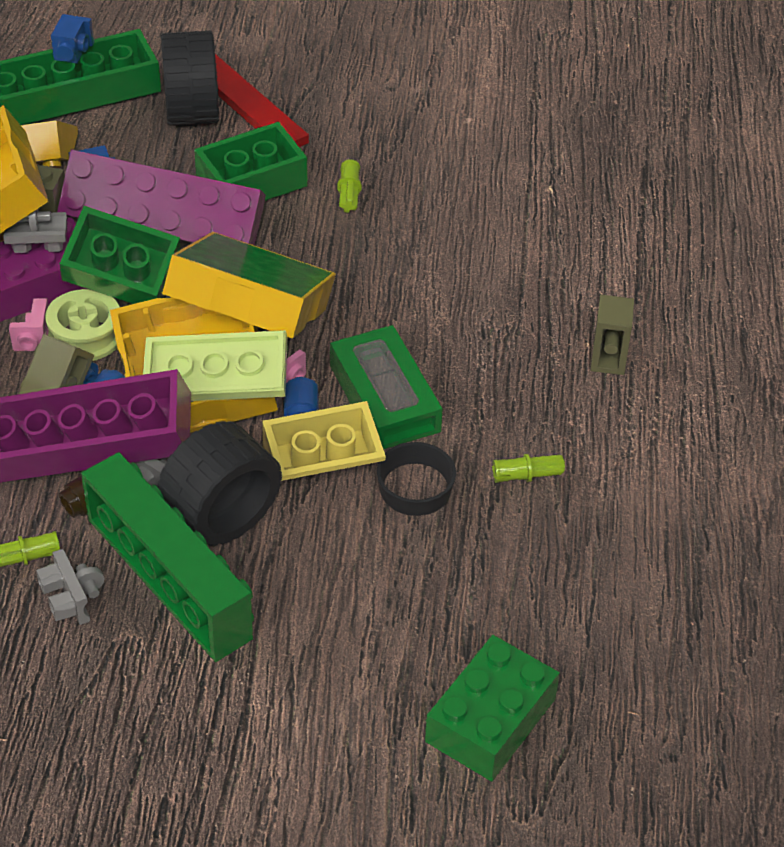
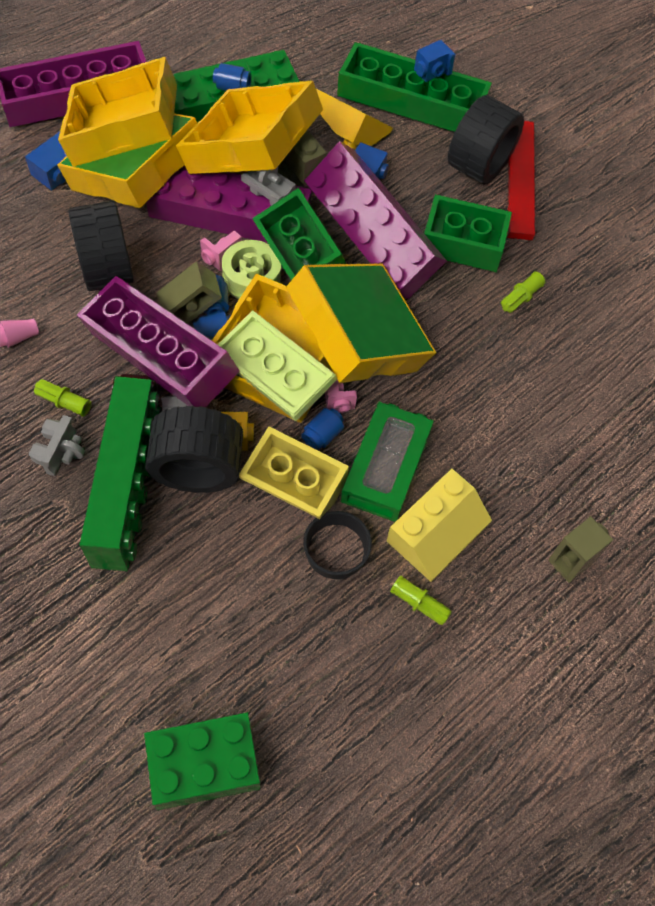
camera: 40 degrees right, 15 degrees up
(481, 402) = (439, 525): none -> light yellow slope

